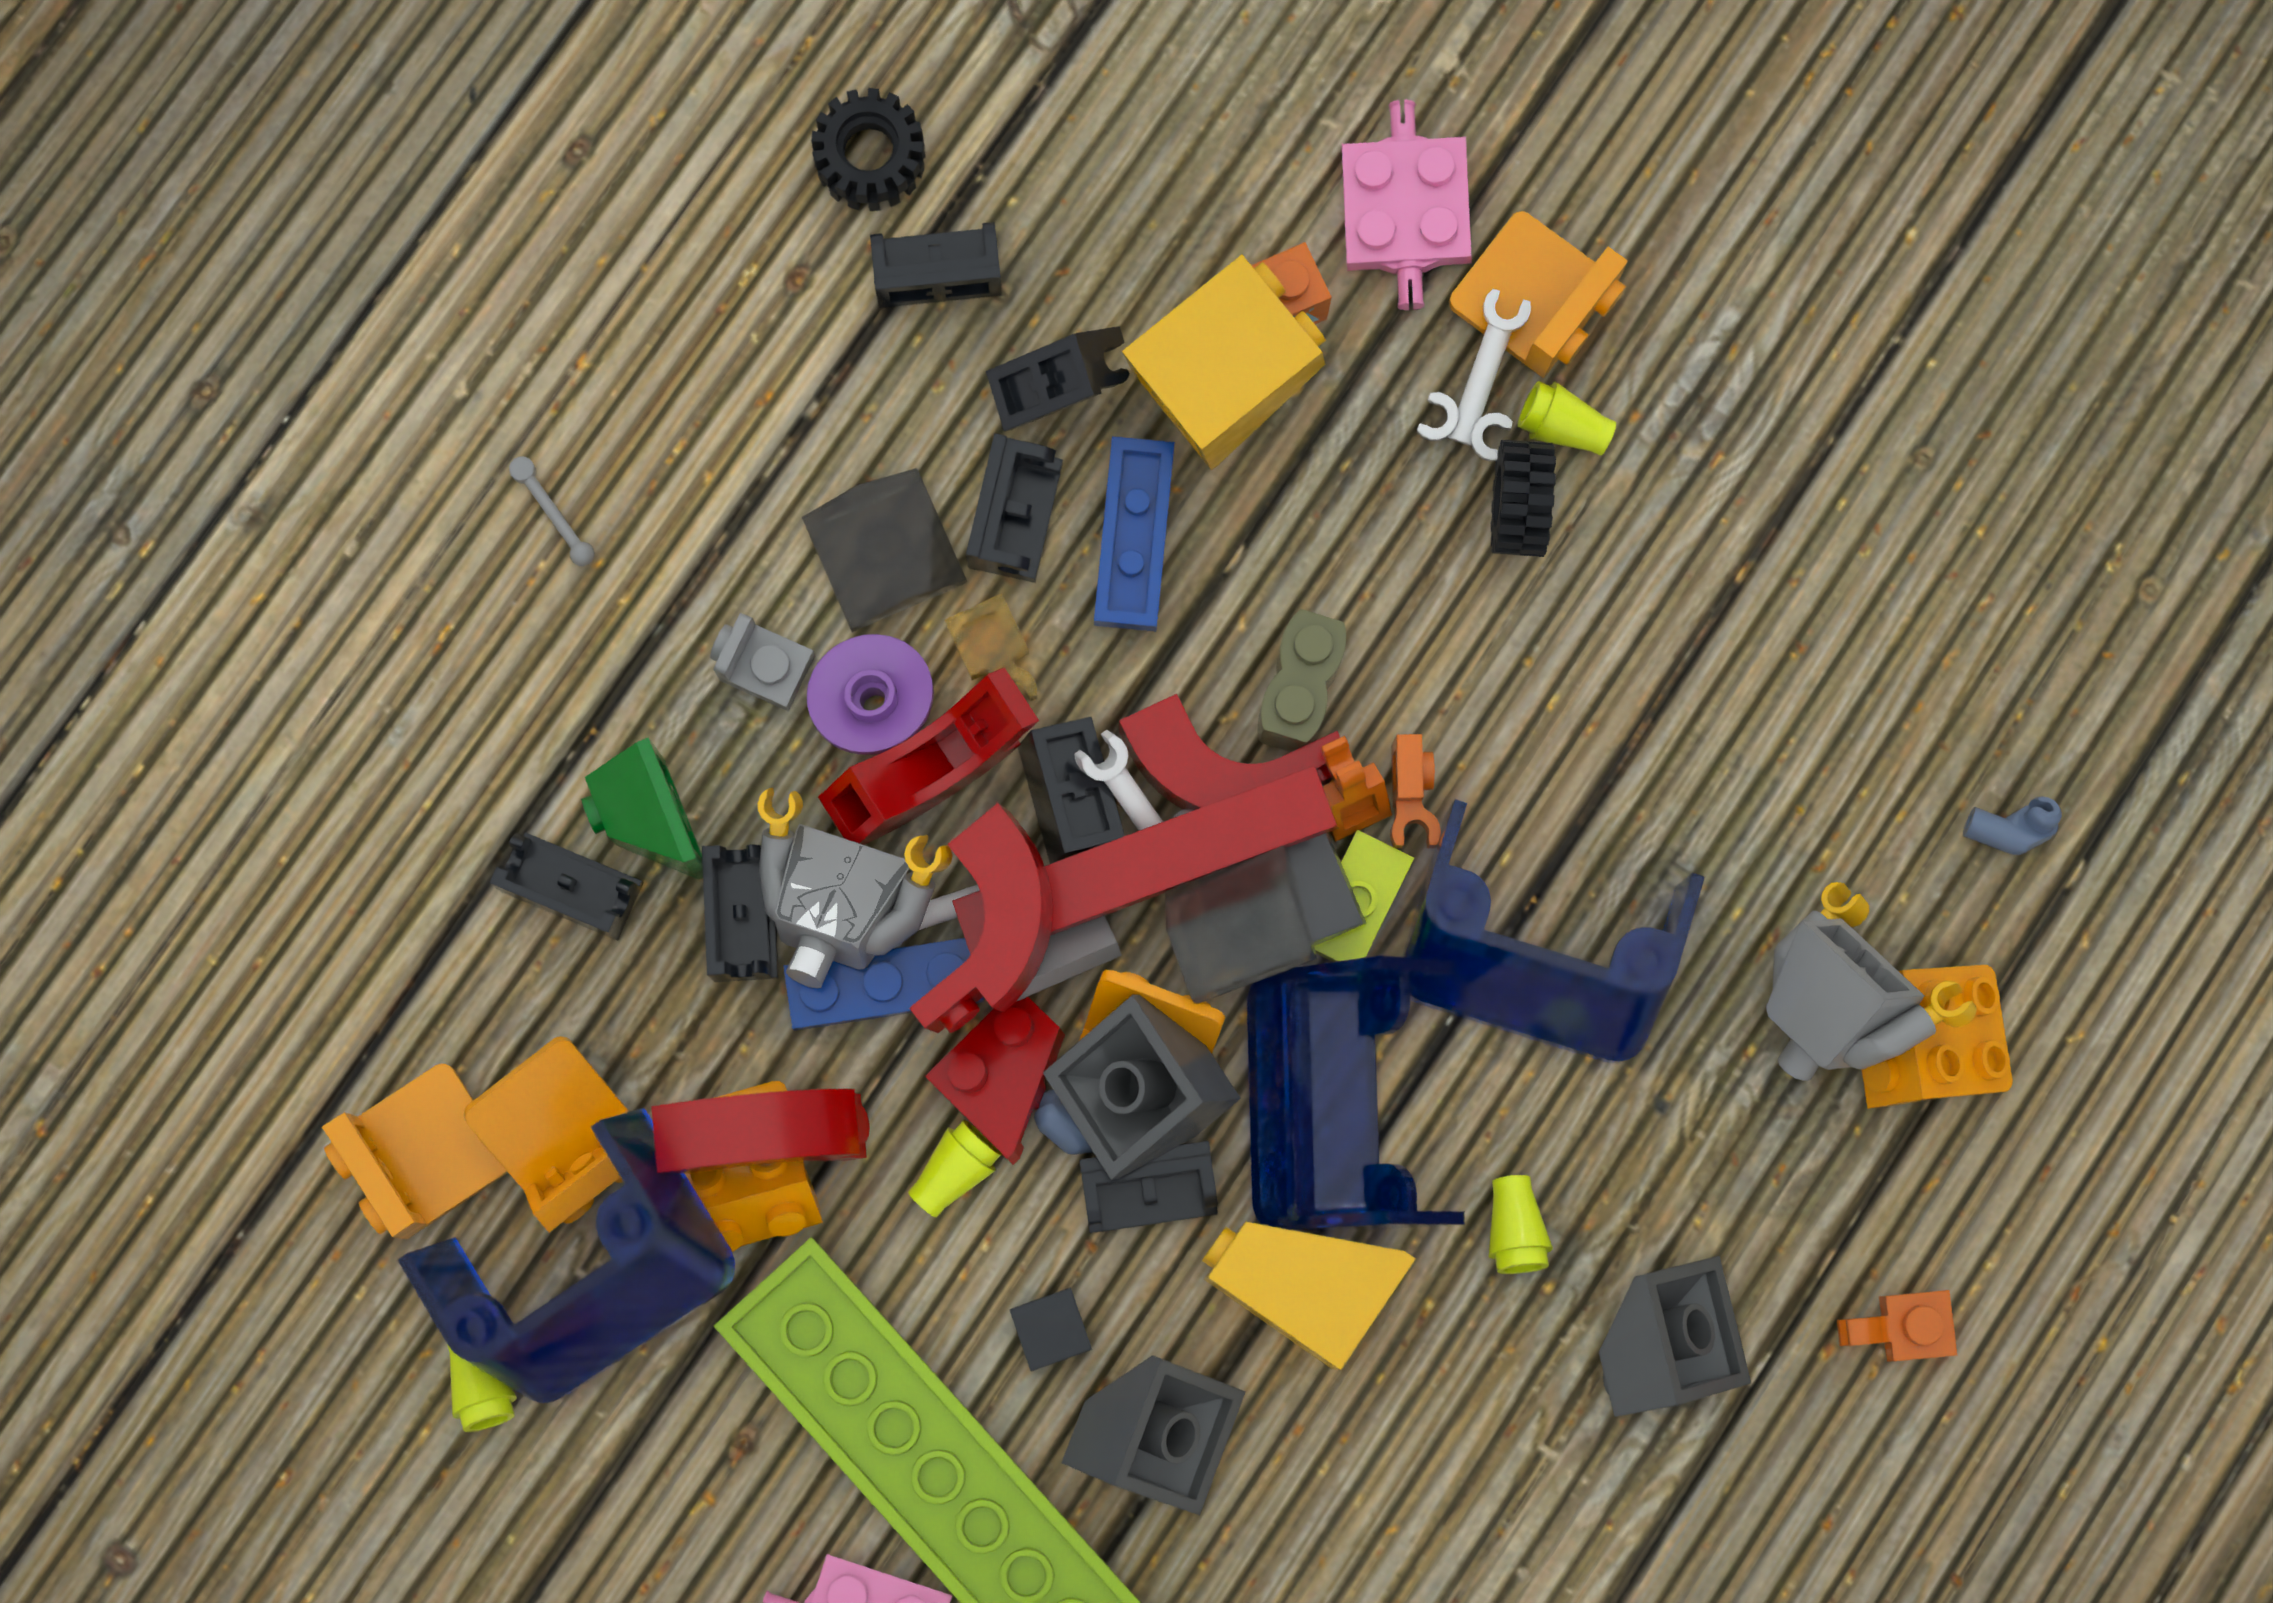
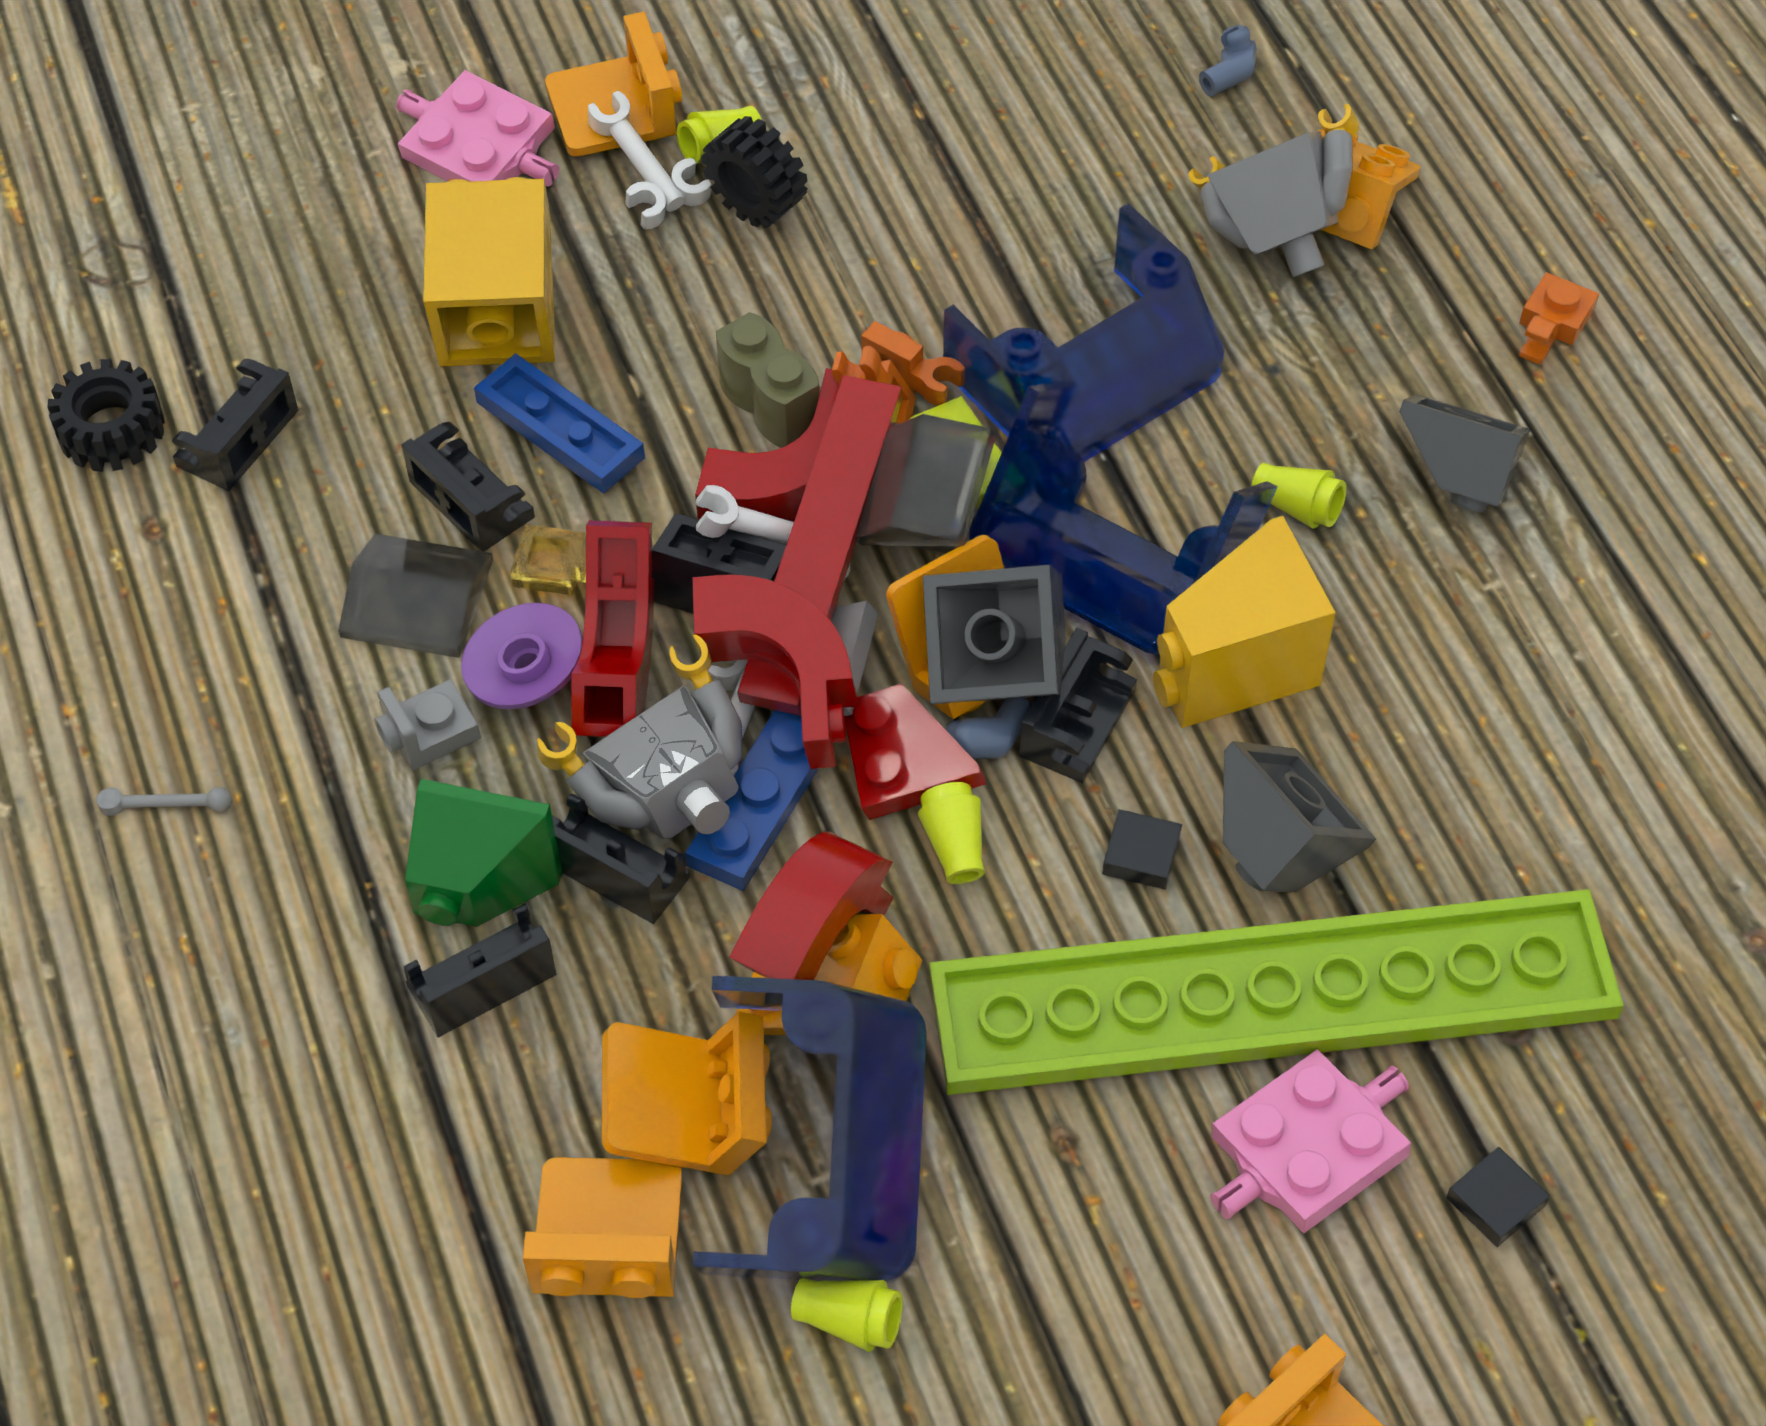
camera: 50 degrees left, 25 degrees down
(1055, 377) = (396, 377): black hinge -> none

